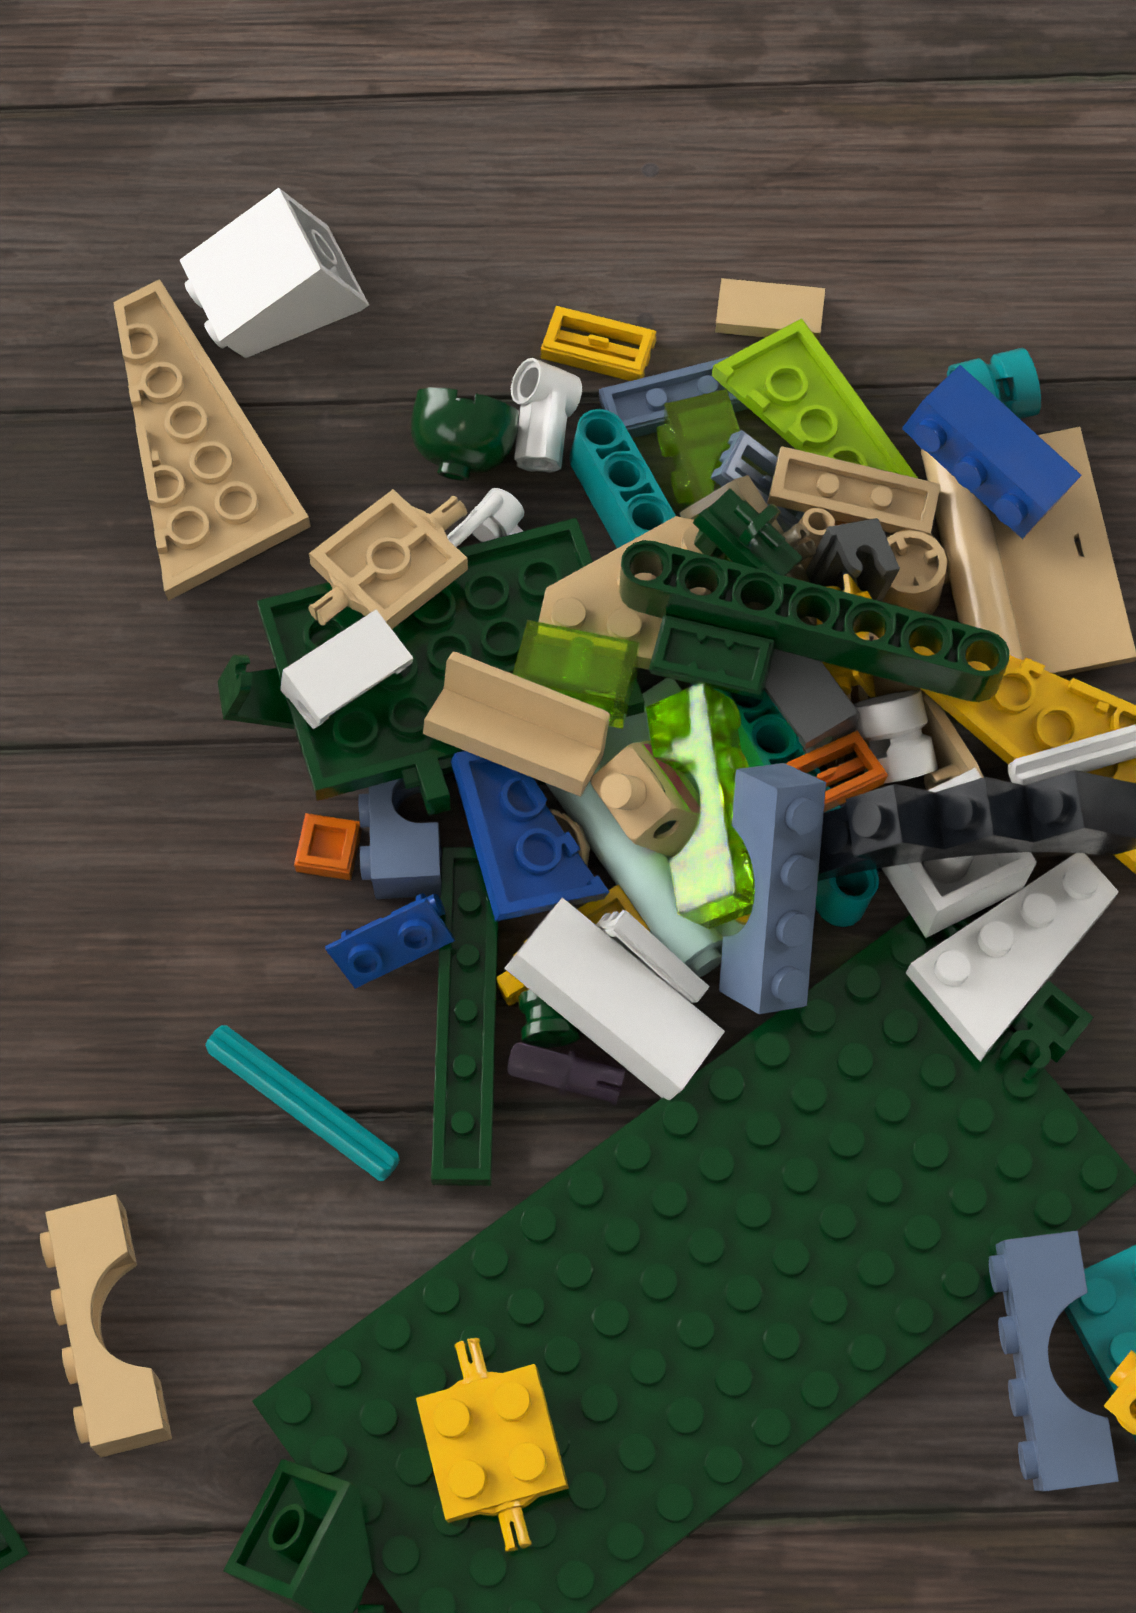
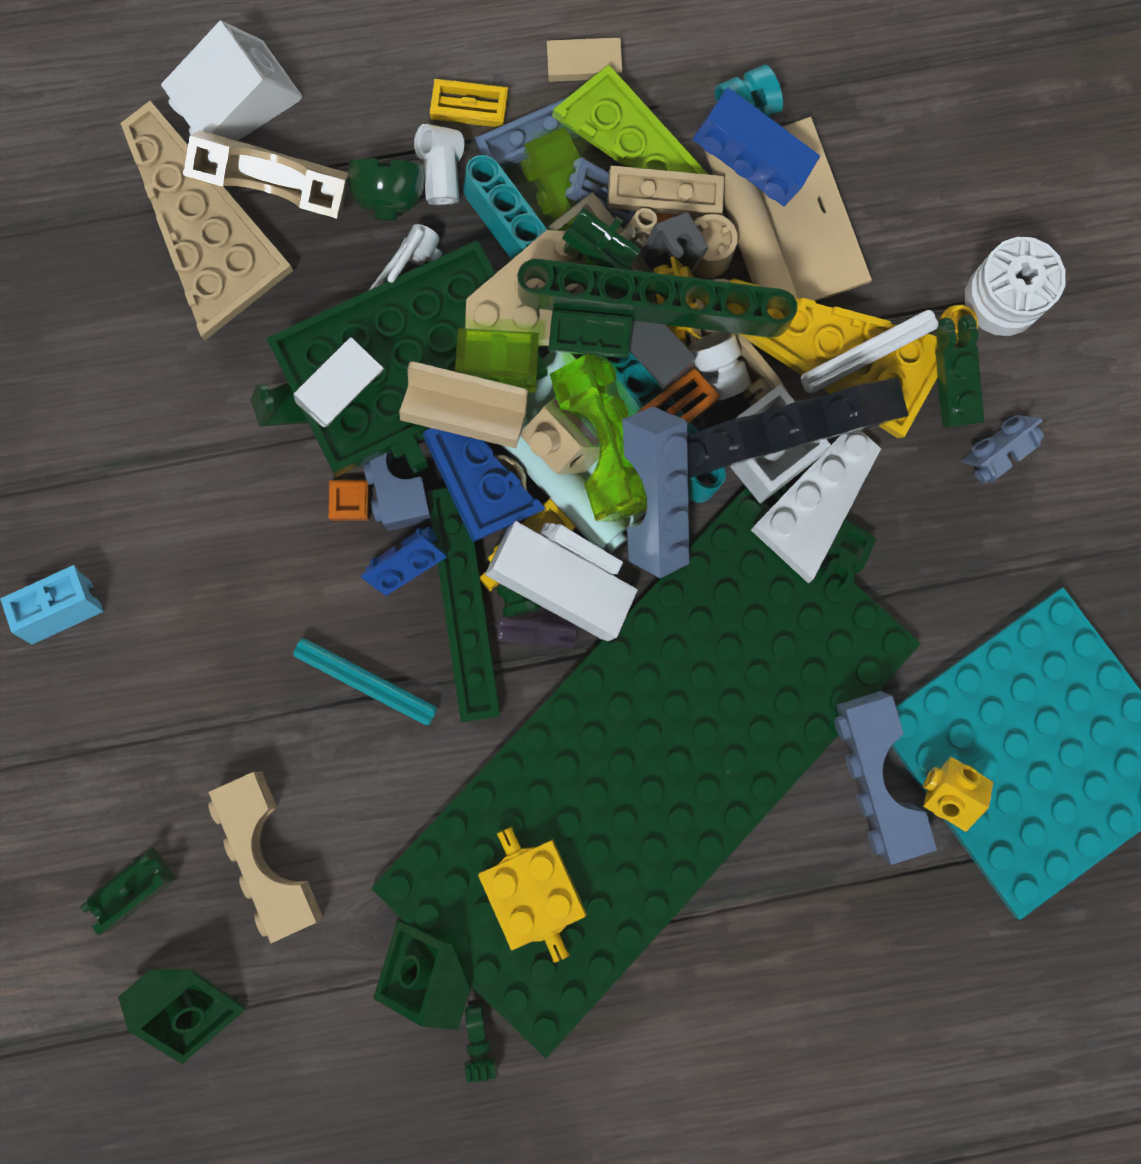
camera: 15 degrees left, 15 degrees up
(301, 390) = (249, 166): none -> tan arch
(389, 560) = (352, 295): tan plate -> none

